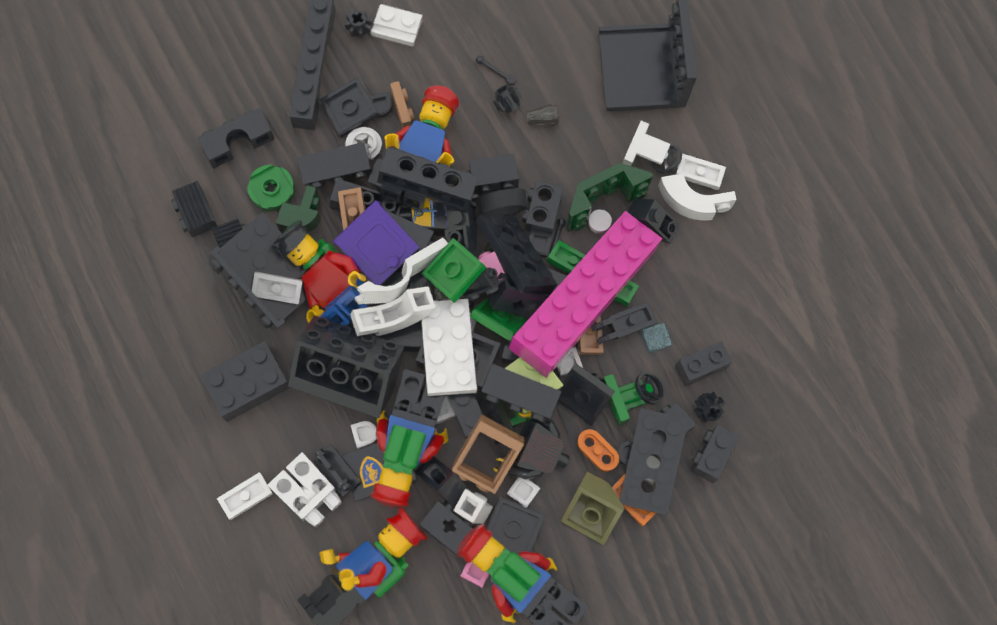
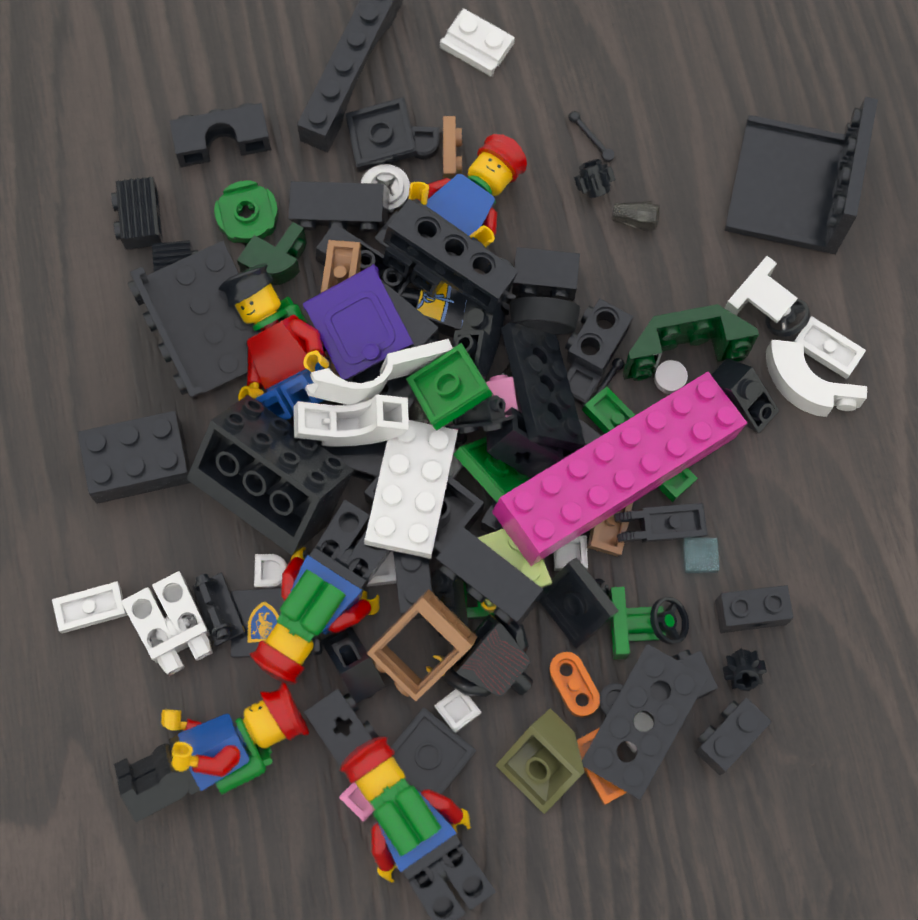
camera: 20 degrees right, 0 degrees up
(277, 287) = (211, 345): white plate -> none
(358, 23) = (426, 26): black gear -> none
(473, 507) = (382, 711): white brick -> none

